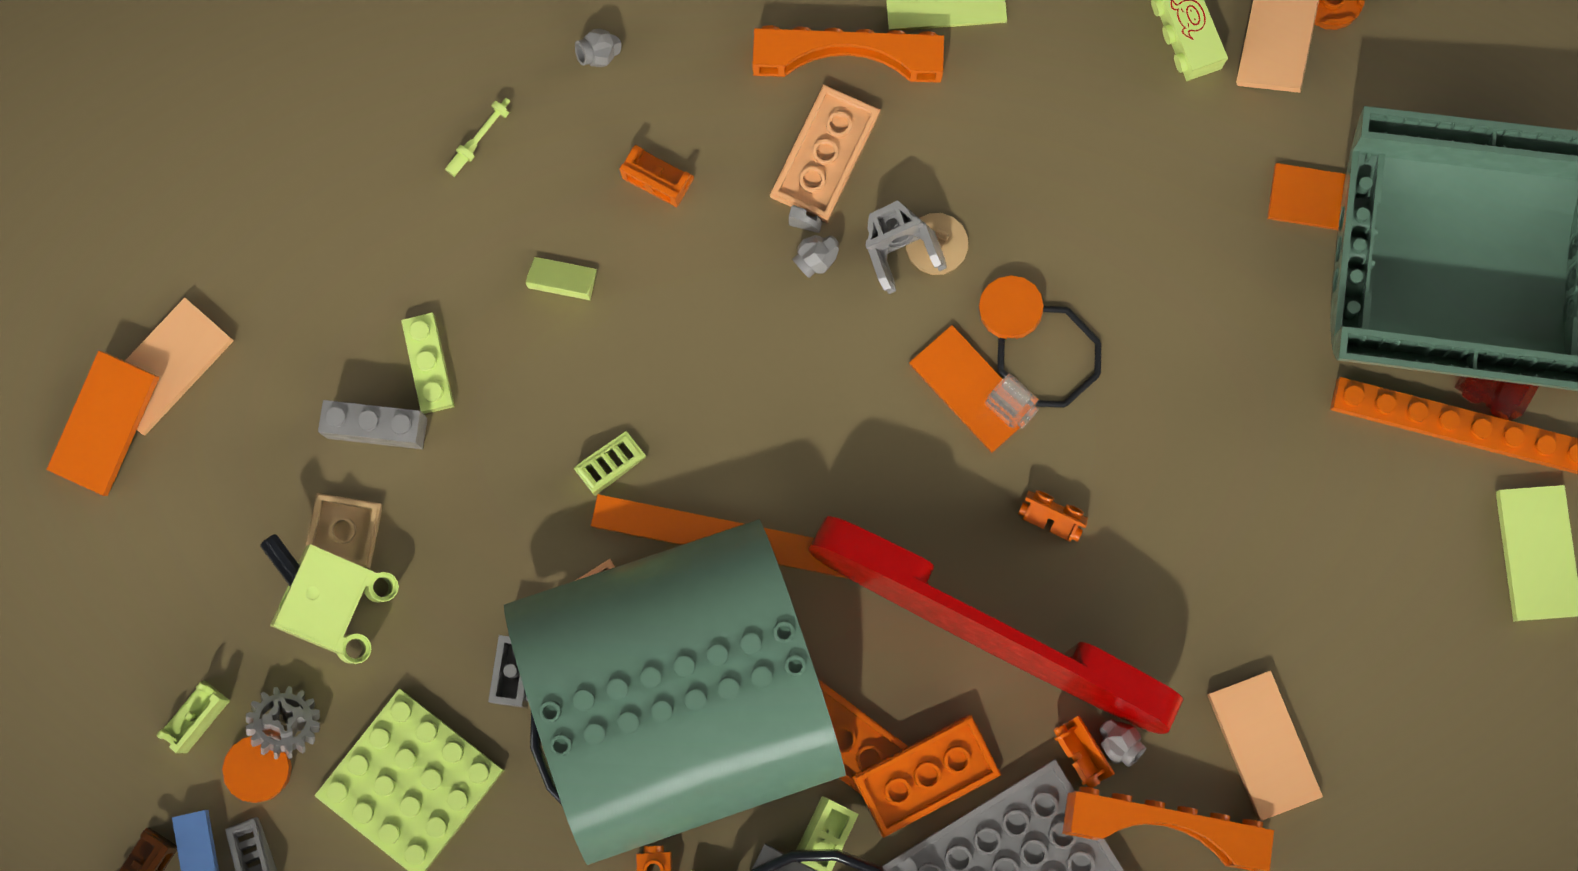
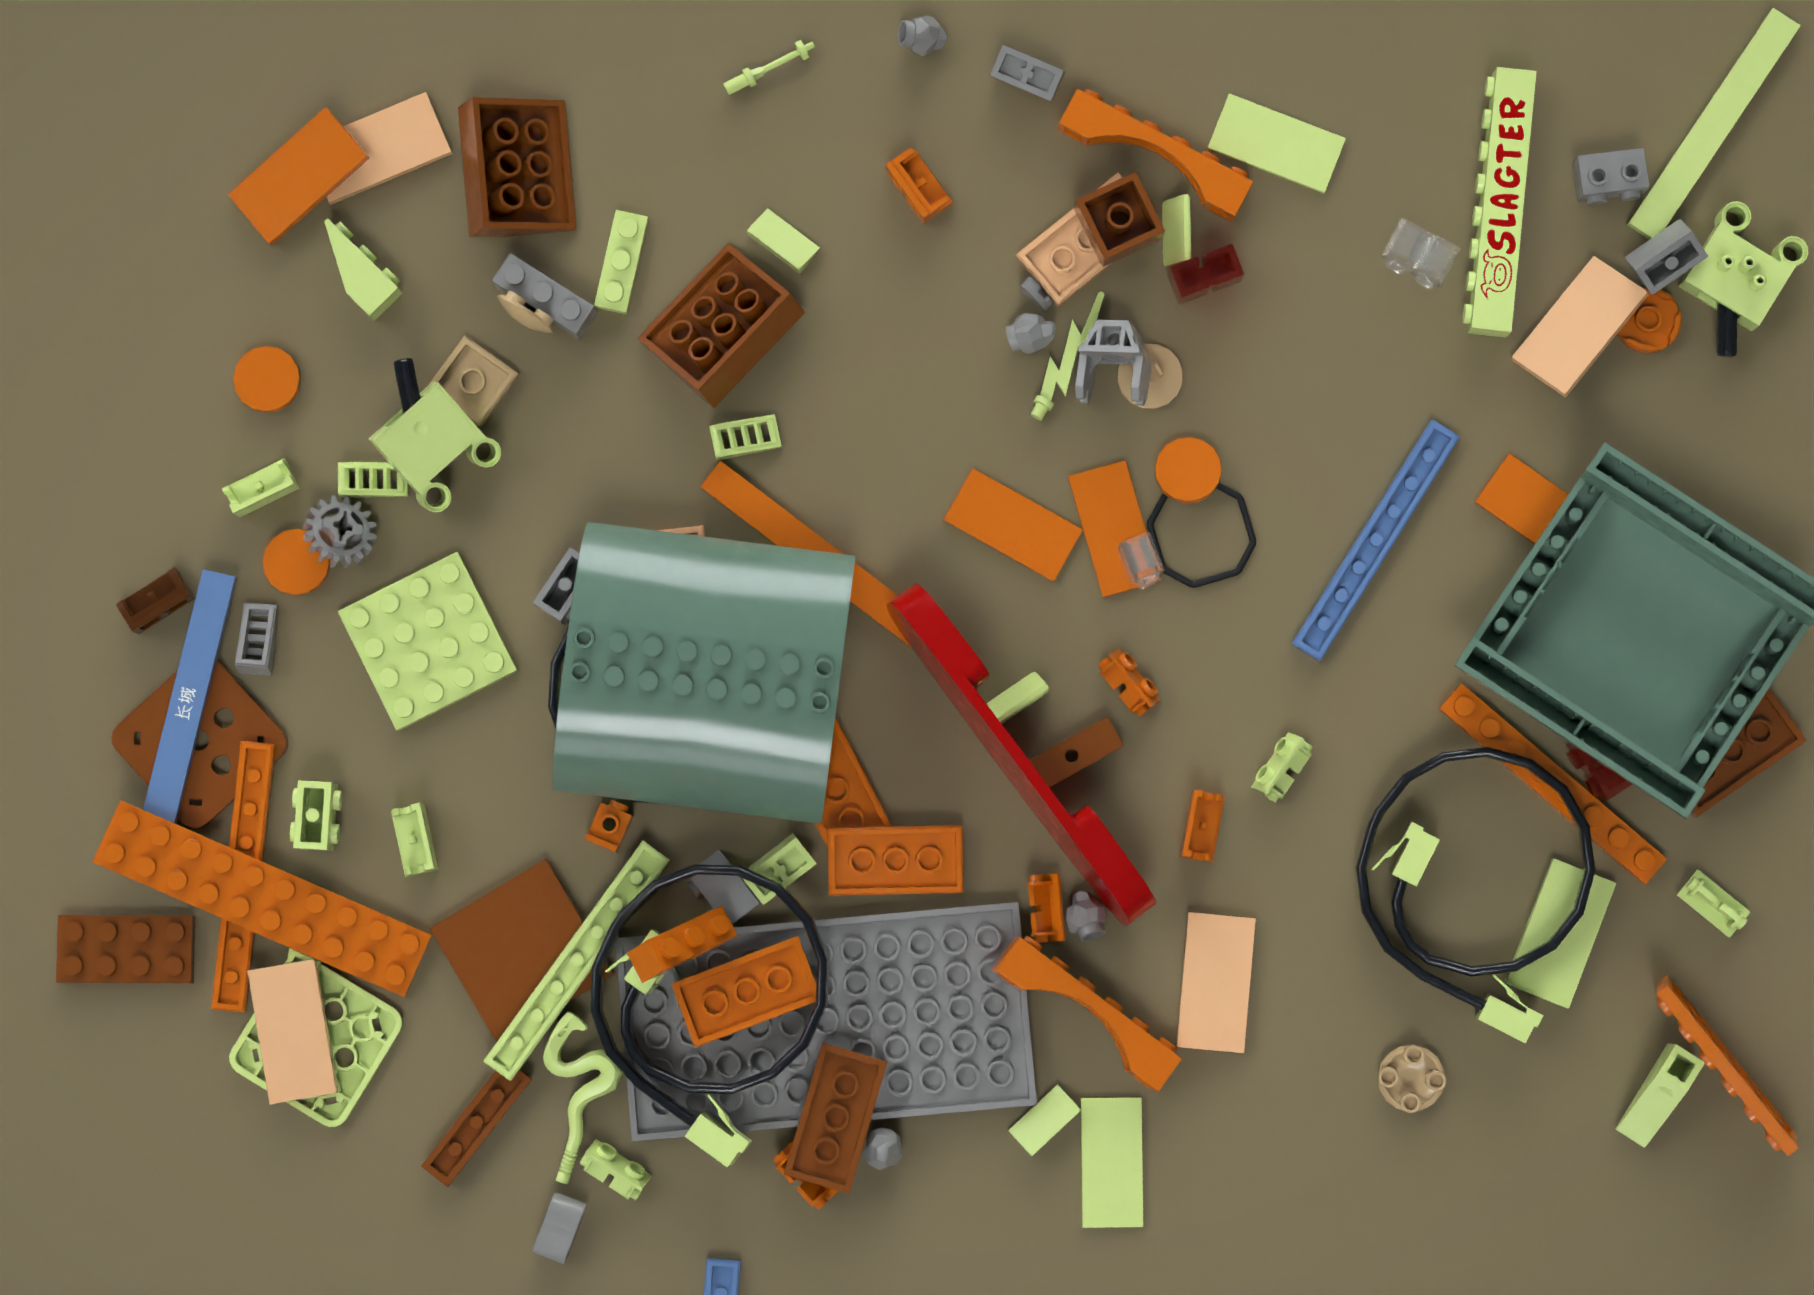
camera: 25 degrees right, 5 degrees up
(155, 616) = (267, 379): none -> orange tile
(200, 486) = (362, 279): none -> yellowish green slope
(265, 673) = (359, 491): none -> yellowish green slope
(295, 324) = (516, 167): none -> dark orange slope
(375, 448) = (535, 321): none -> tan dish
(542, 375) = (721, 325): none -> dark orange slope
(704, 35) = (1027, 73): none -> light grey hinge
(845, 119) = (1119, 219): none -> dark orange brick
(861, 279) = (1063, 375): none -> yellowish green piece
(882, 427) = (1013, 525): none -> orange piece
(899, 110) = (1177, 229): none -> yellowish green slope
(951, 125) = (1219, 270): none -> clear red piece
(964, 573) = (1018, 697): none -> yellowish green slope
(1048, 589) = (1089, 745): none -> dark orange tile
(1114, 31) = (1420, 254): none -> clear brick
(1180, 611) = (1202, 826): none -> orange hinge
(1201, 292) = (1375, 540): none -> medium blue tile
(1224, 510) = (1288, 753): none -> yellowish green hinge
(1382, 557) = (1411, 867): none -> black piece
(1480, 746) = (1411, 1078): none -> tan dish

